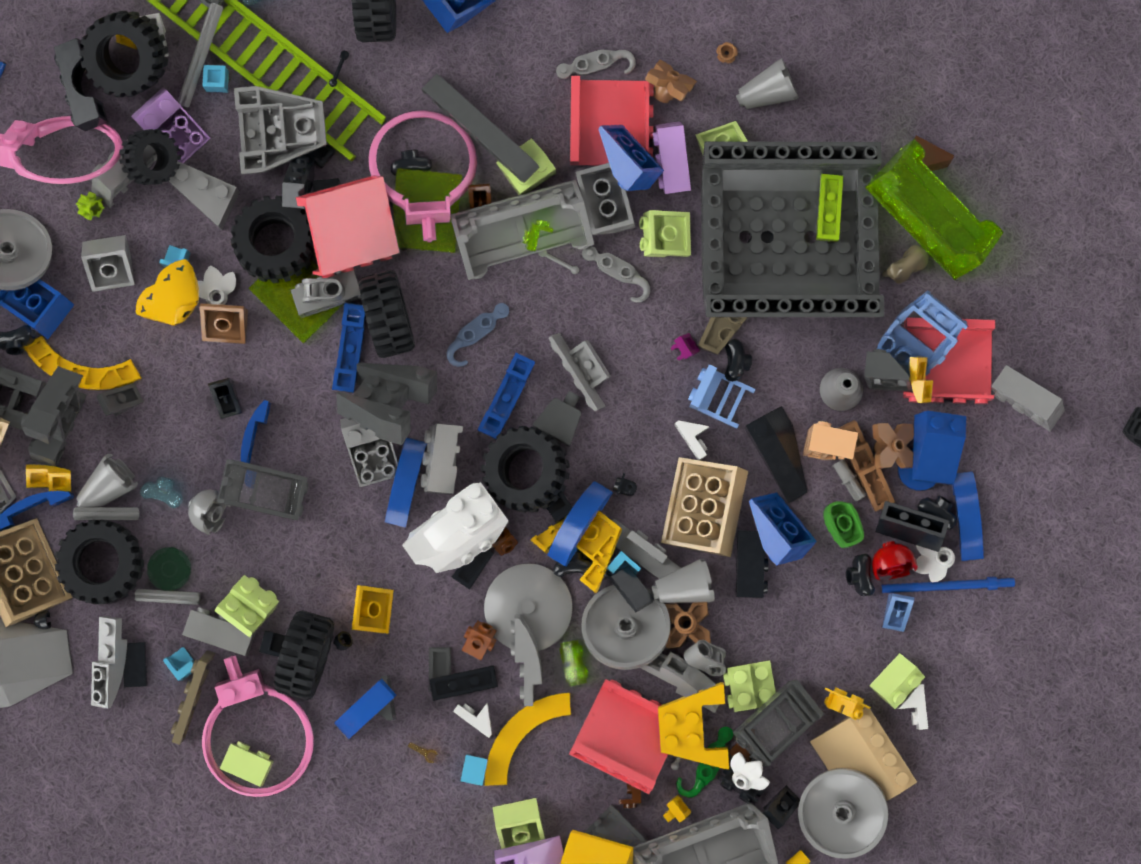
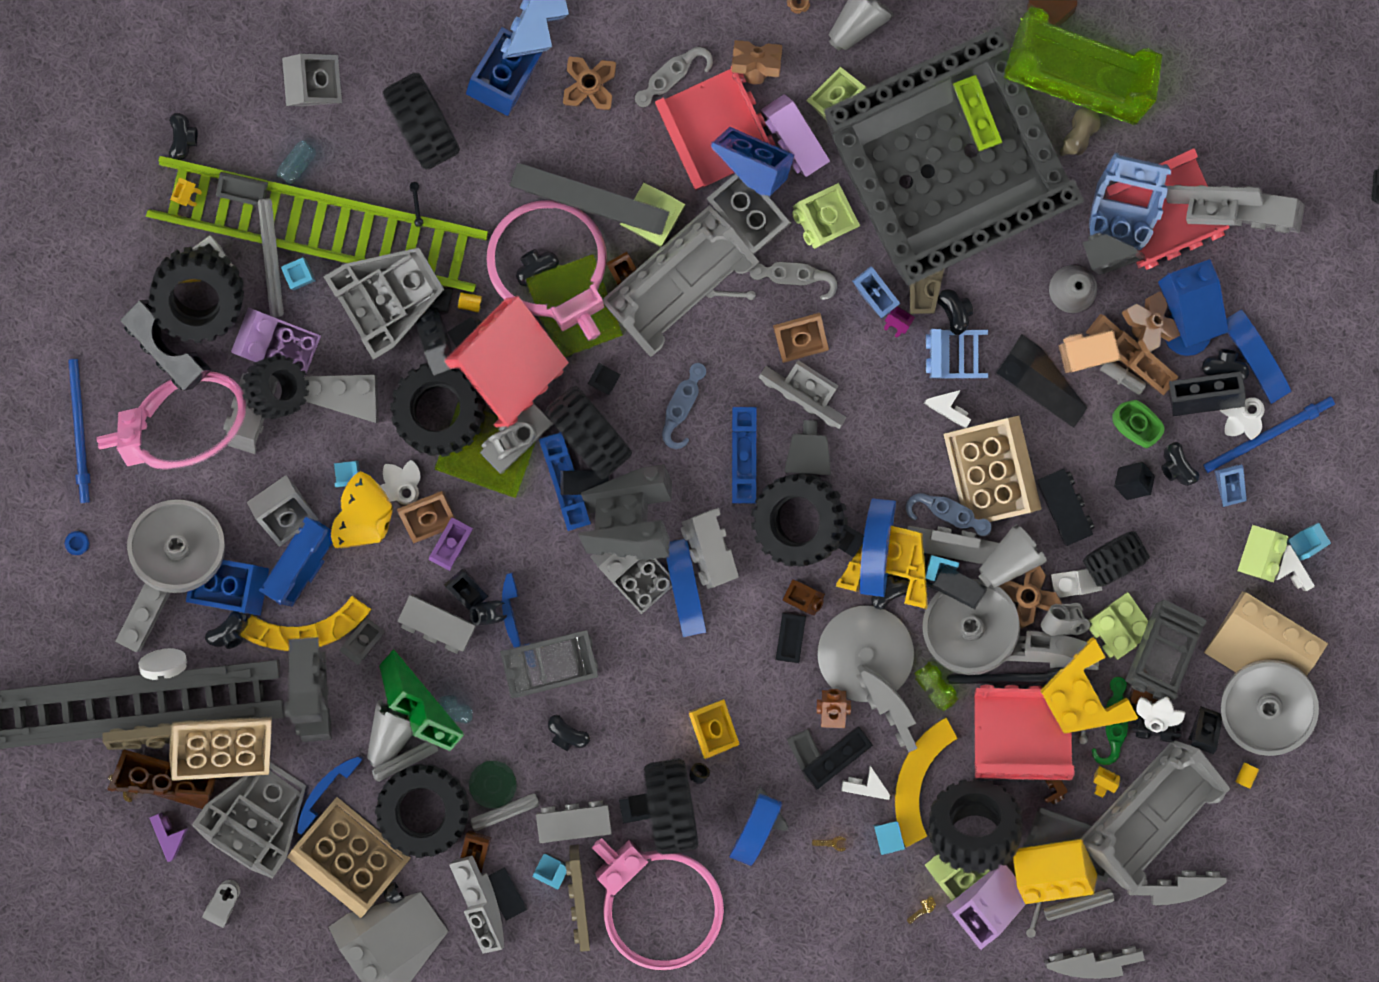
camera: 30 degrees left, 5 degrees up
(48, 476) = (333, 749): yellow slope -> none
(90, 205) = (235, 462): lime gear -> none
(99, 310) = (298, 563): none -> blue piece
(130, 613) = (476, 845): none -> reddish brown slope
(136, 464) = (410, 697): none -> green slope
(187, 414) = (436, 624): none -> light grey brick
(205, 511) = (502, 711): light grey cylinder -> none
(230, 424) = (485, 613): none -> black piece
(231, 354) = (450, 544): none -> medium lavender slope
(247, 605) = (589, 783): yellowish green plate -> none
(247, 764) = (663, 937): yellowish green brick -> none
(248, 556) = (566, 735): none -> black piece
(343, 167) = (469, 302): none -> yellow hinge
(359, 352) = (579, 481): none -> black tile
(421, 280) = (604, 379): none -> black panel
(458, 531) = (761, 613): white slope -> none
(480, 843) = (928, 906): none -> clear yellow hand
(531, 237) = (693, 283): clear neon green bracket -> none
(537, 36) = (600, 74): none -> medium nougat plant
(542, 816) = (975, 852): none -> black tyre
(599, 322) = (801, 337): none -> medium nougat slope
(624, 486) = (904, 490): black hinge -> none
(631, 681) = (1002, 678): none -> black piece
(653, 524) = (950, 512): none -> sand blue piece
(677, 313) = (875, 292): none -> medium blue slope
(731, 632) = (1074, 583): none -> white slope
(773, 626) = (1116, 558): none -> black tyre
(780, 529) = (1078, 459): blue slope -> none
(818, 570) = (1134, 481): none -> black panel
(838, 699) = (1213, 600): yellow hinge -> none
(893, 561) = (1204, 436): red cylinder -> none
(921, 387) = (1151, 250): yellow slope -> none
(940, 689) = (1309, 541): none -> medium azure panel
(990, 371) = (1213, 204): none -> light grey bracket

